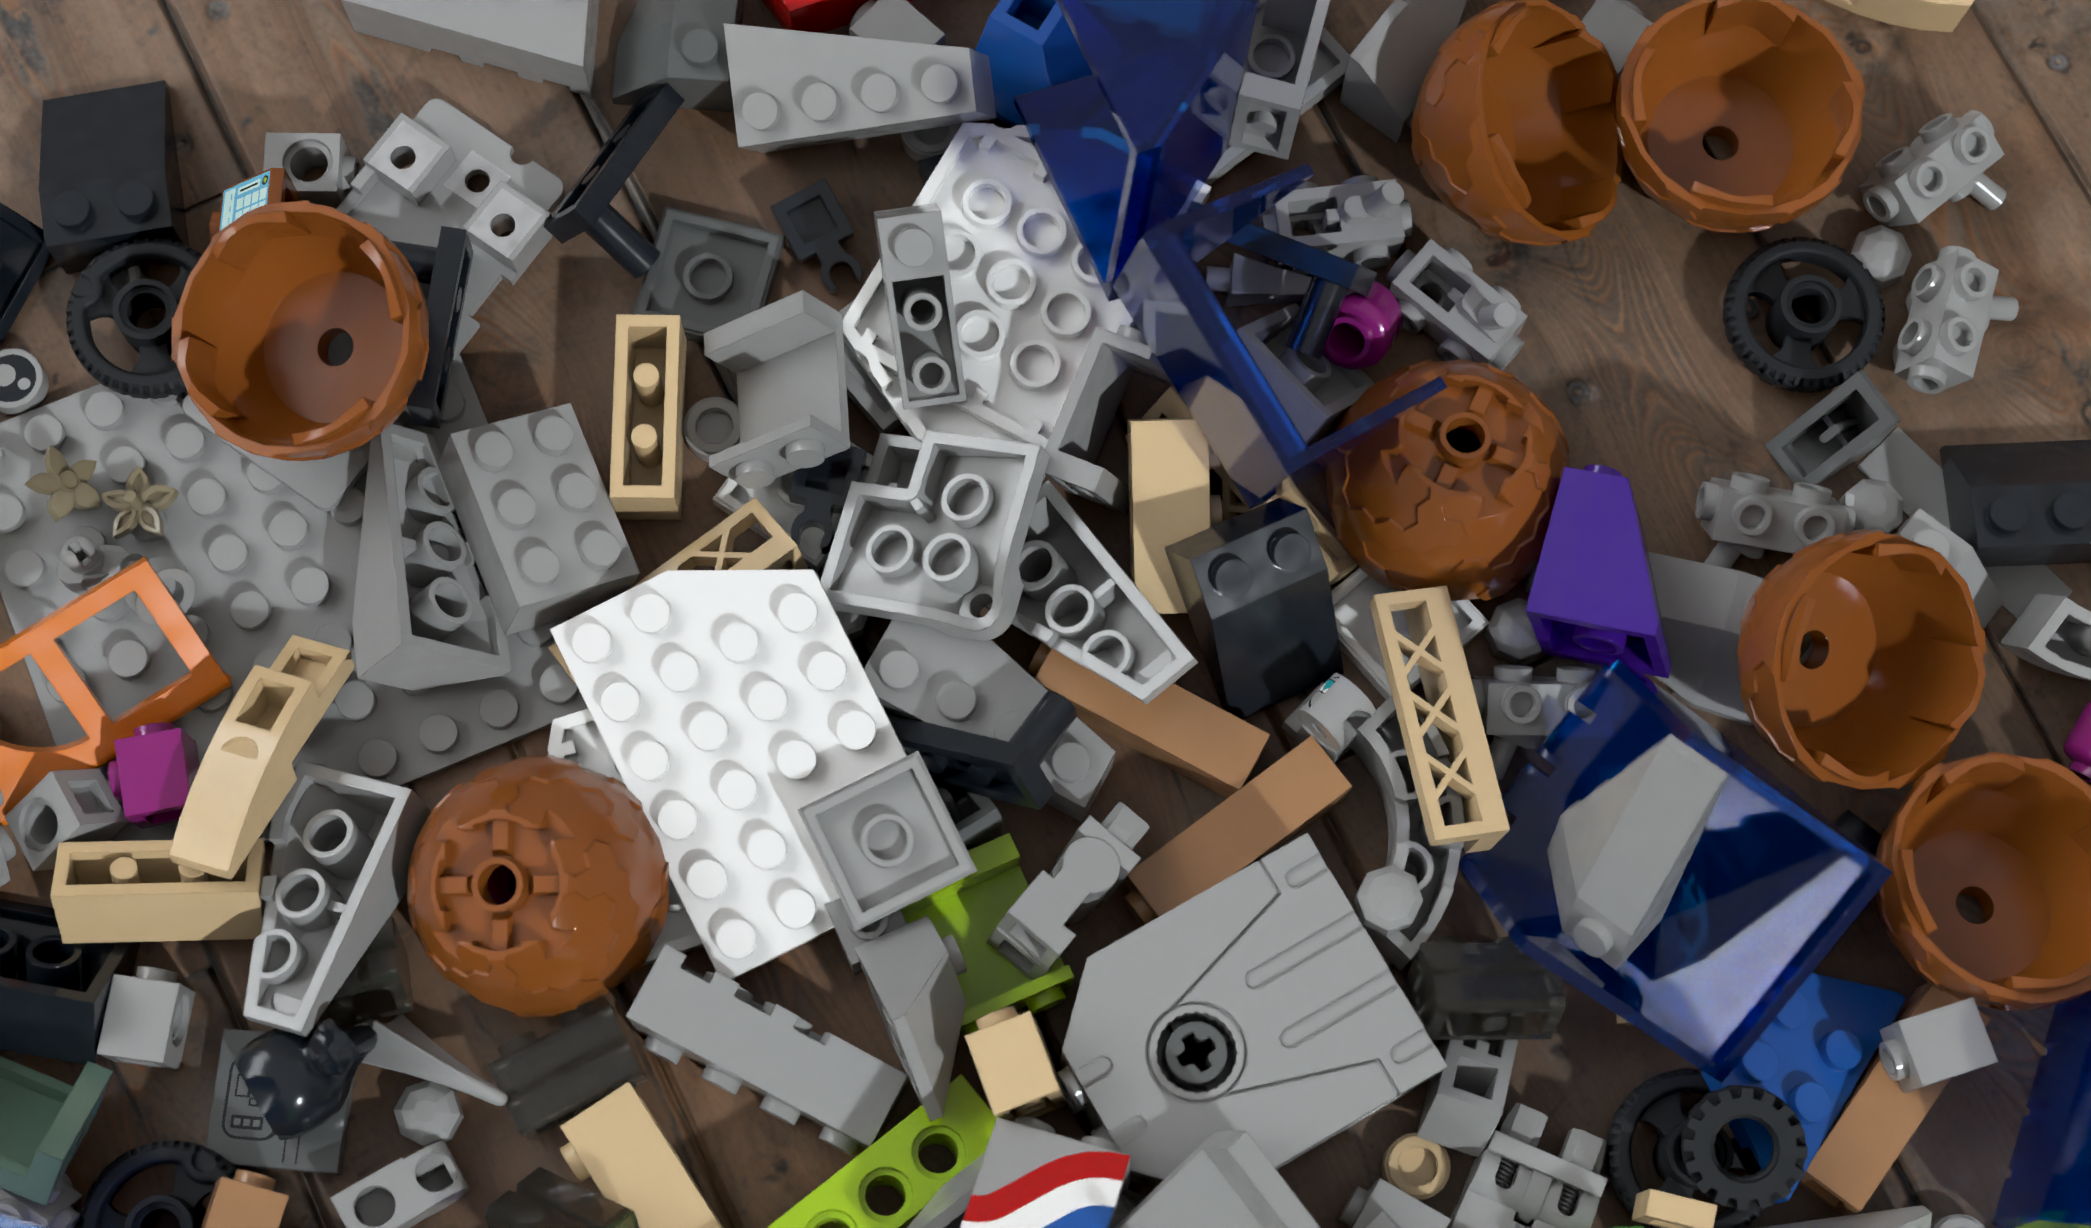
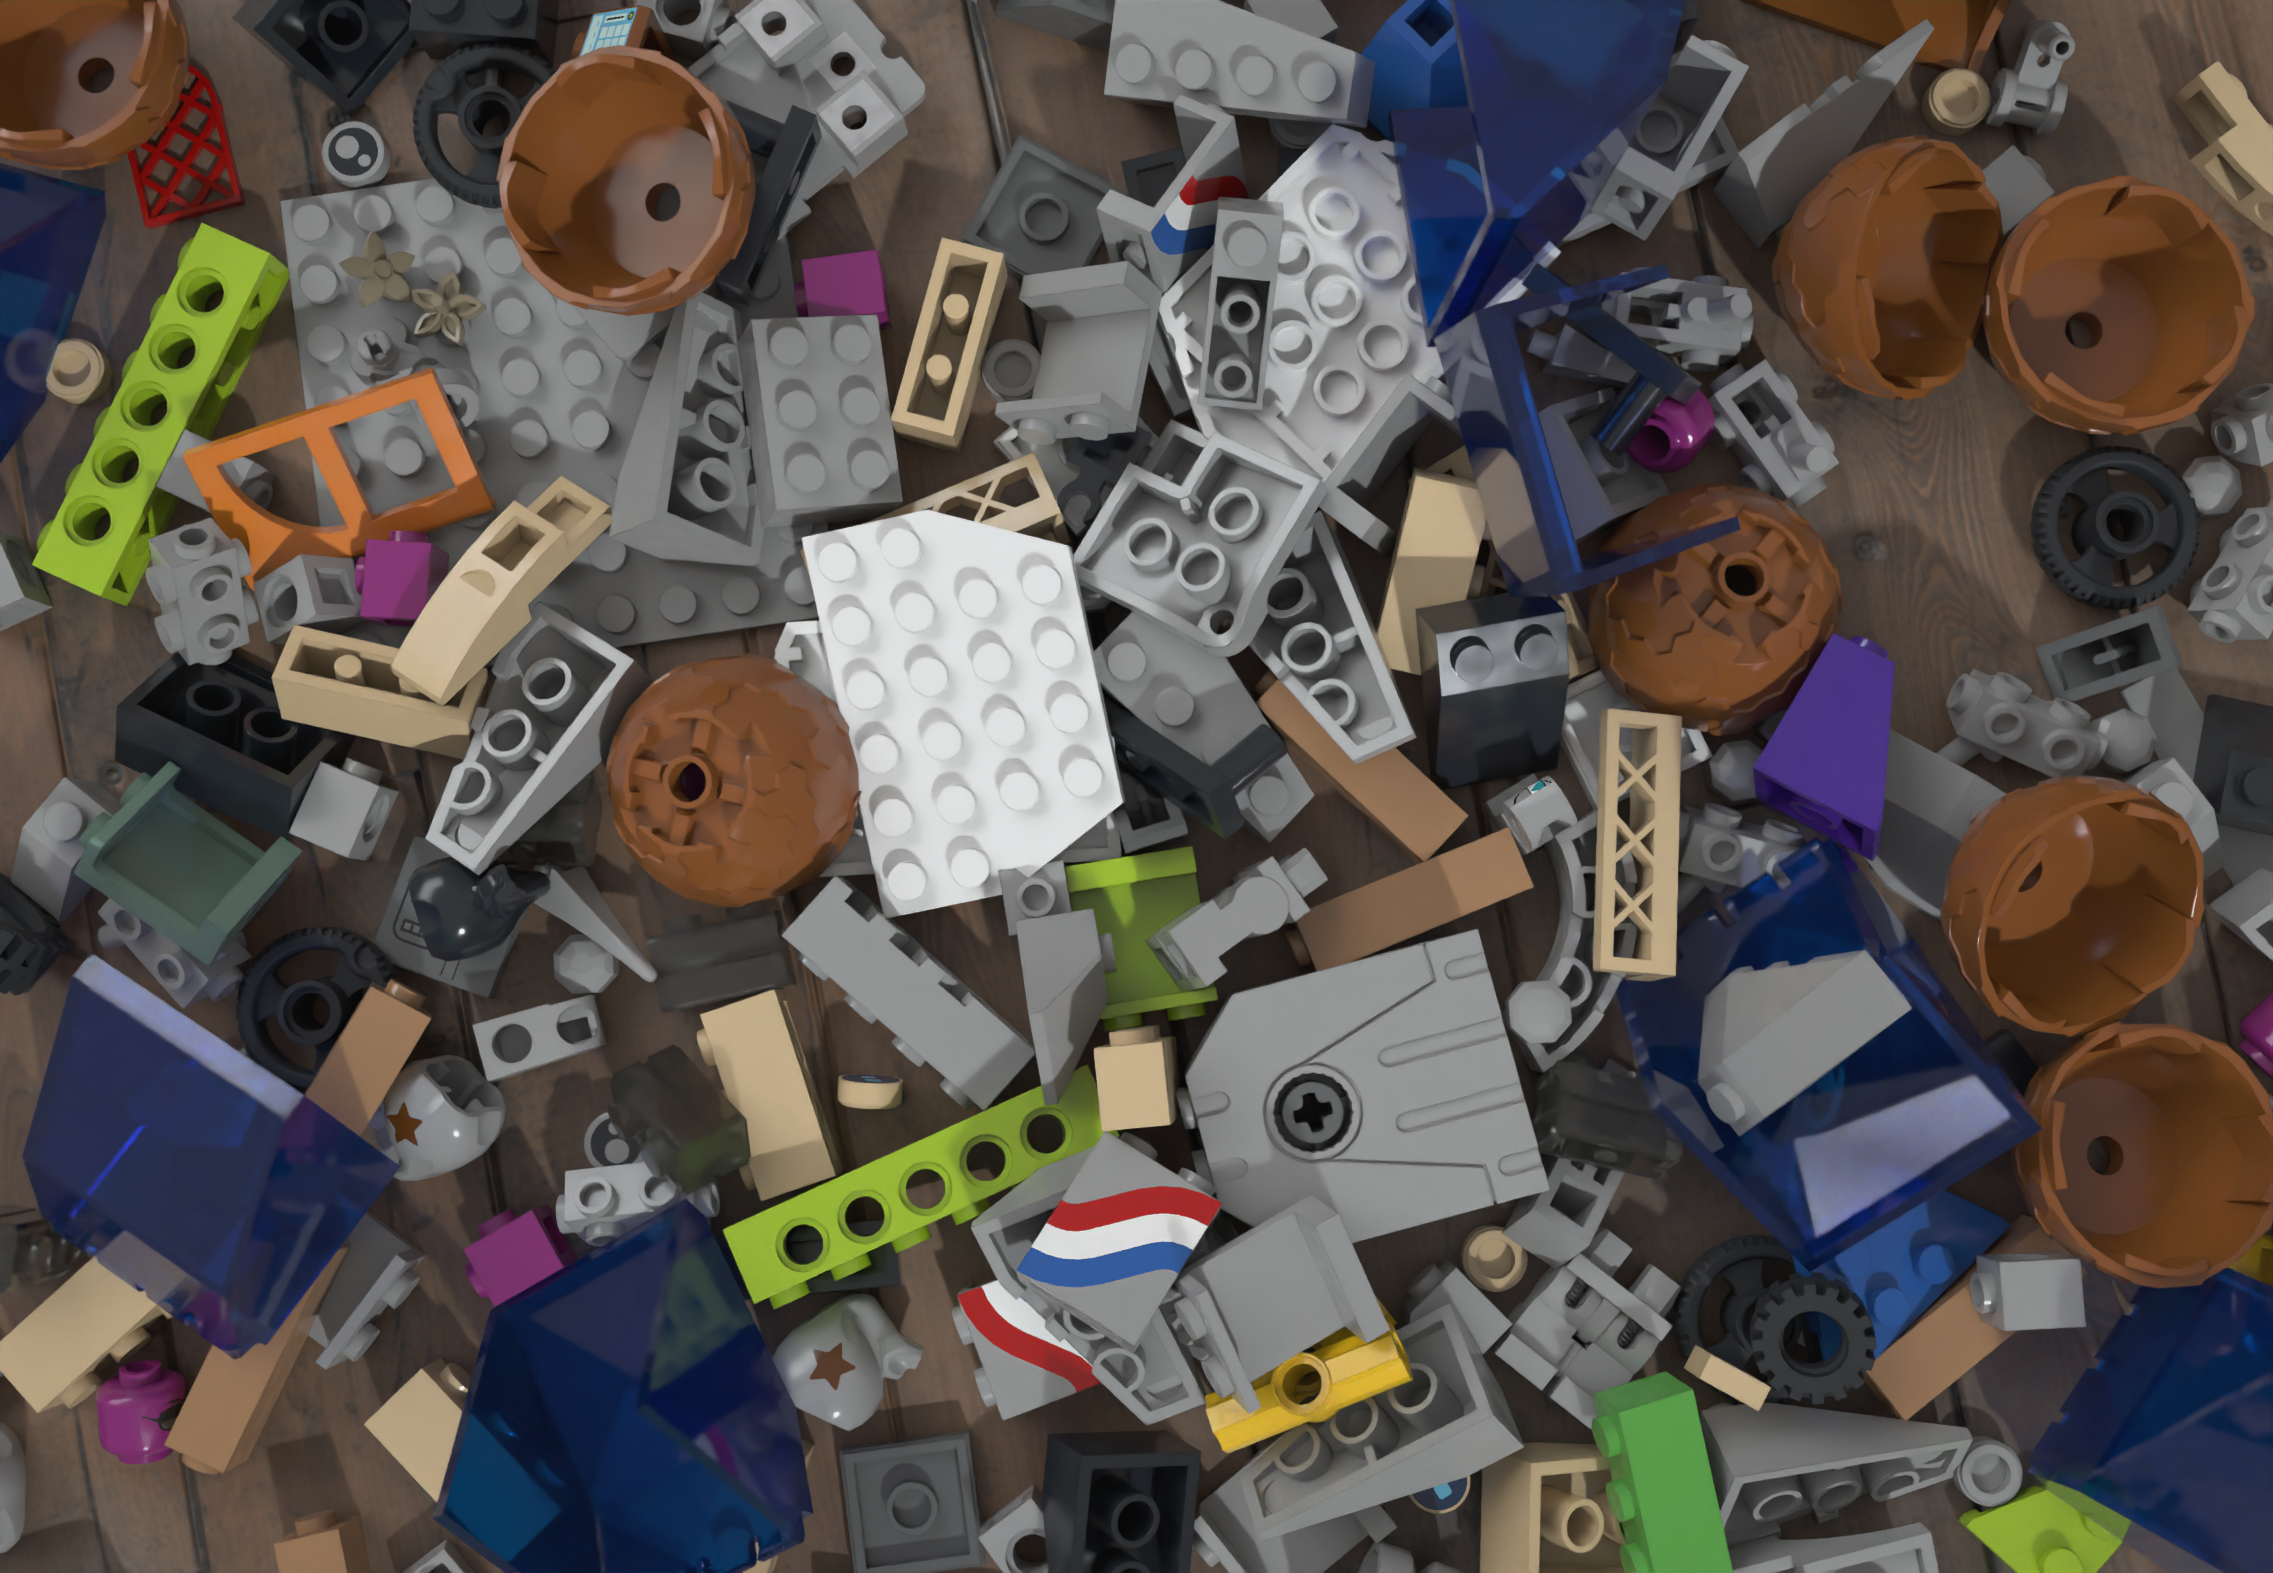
camera: 20 degrees right, 10 degrees up
(530, 385) = (844, 287): none -> magenta brick
(588, 202) = (943, 114): black piece -> none
(749, 1163) = (869, 1091): none -> tan tile
(845, 246) = (1182, 225): none -> light grey panel
(887, 840) = (1071, 829): light grey tile -> none

